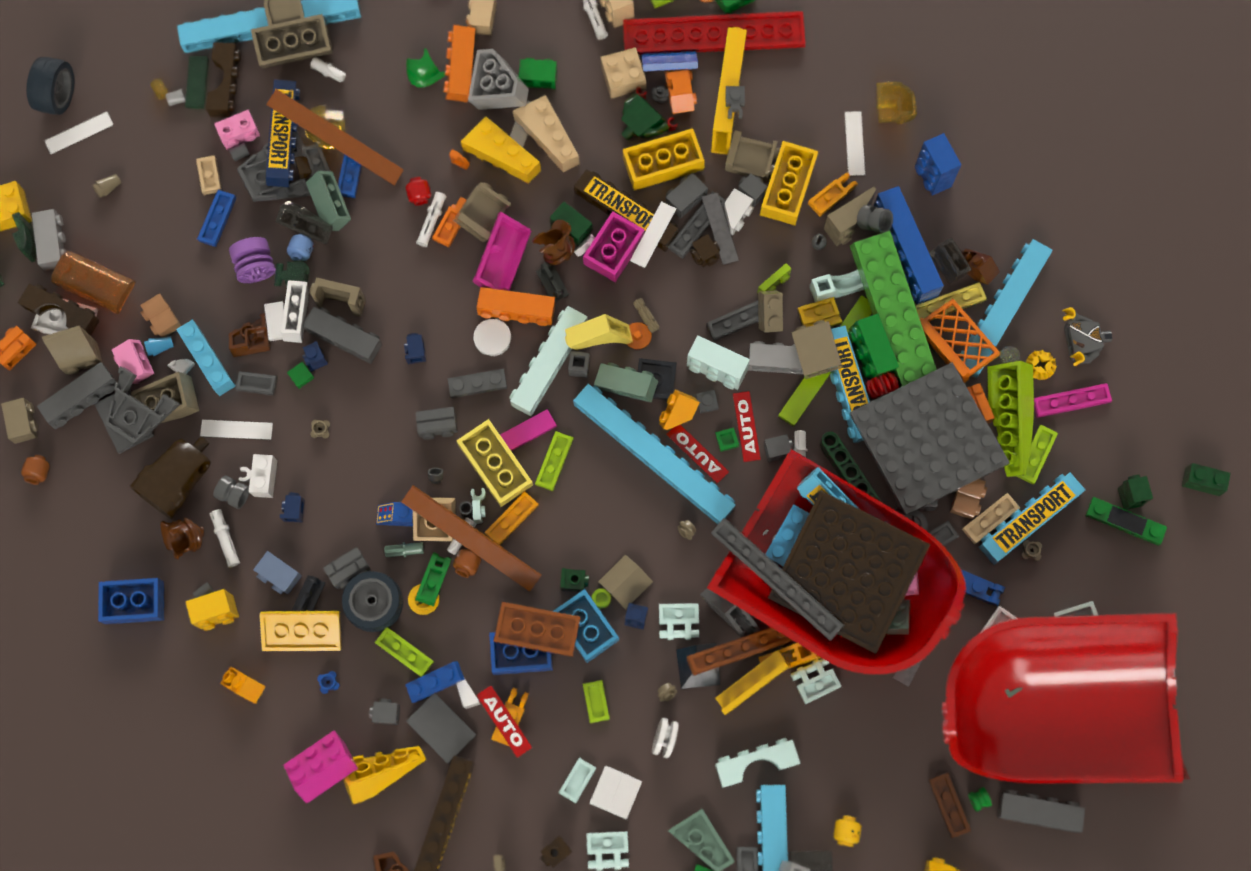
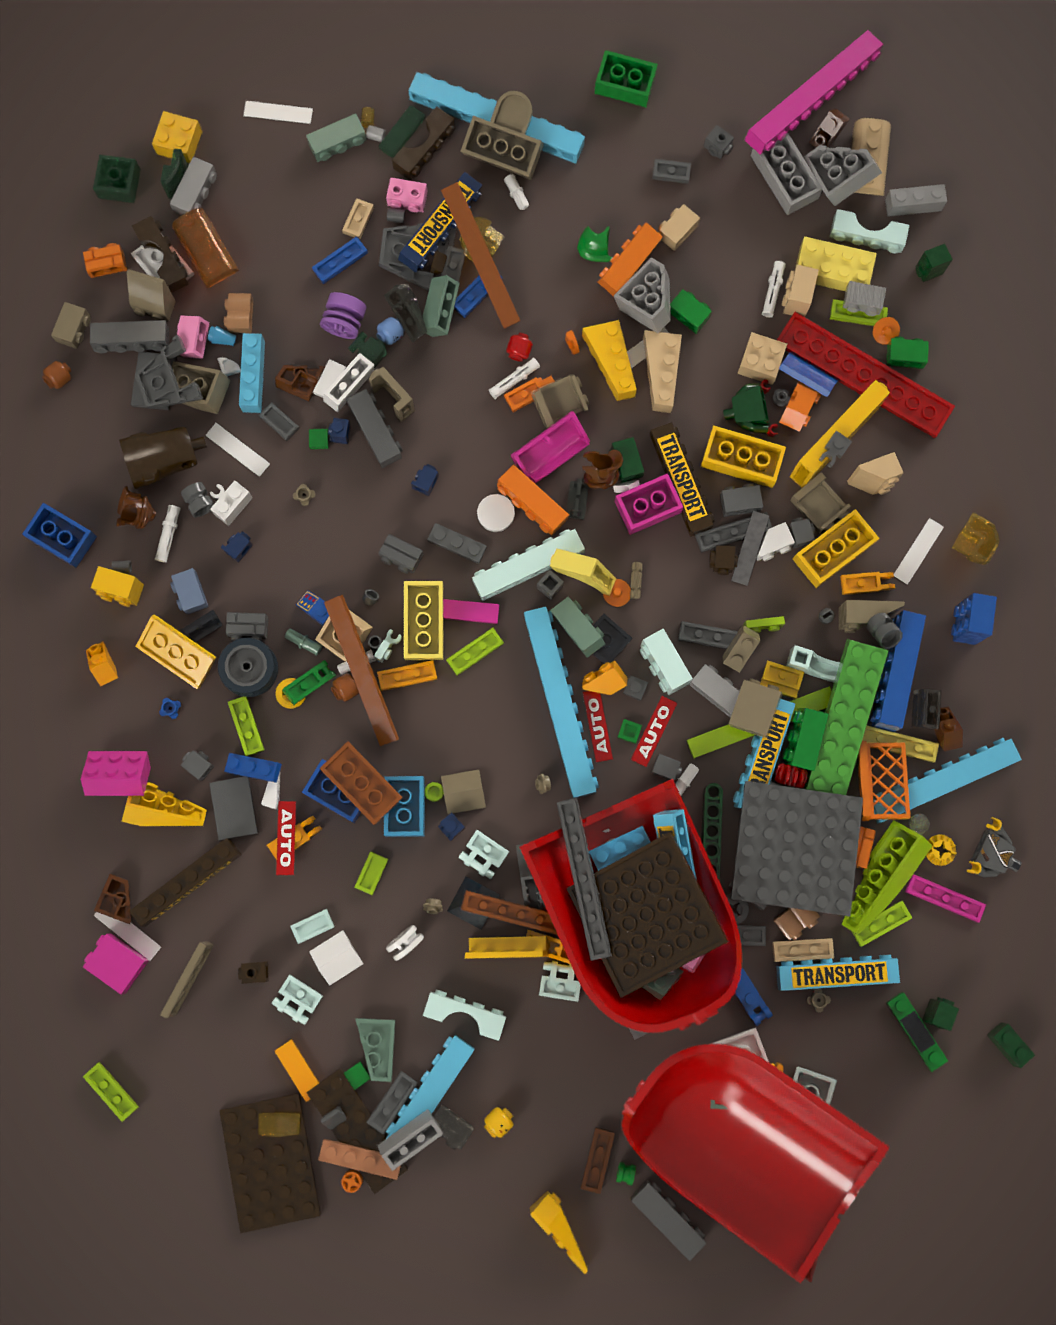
camera: 30 degrees right, 5 degrees up
(50, 85) = (278, 56): black wheel -> none
(106, 185) = (269, 172): dark tan cone -> none
(144, 121) = (336, 138): none -> sand green brick
(566, 583) = (418, 754): dark green brick -> none
(653, 234) = (688, 516): white sticker -> none
(781, 102) = (877, 475): none -> tan slope

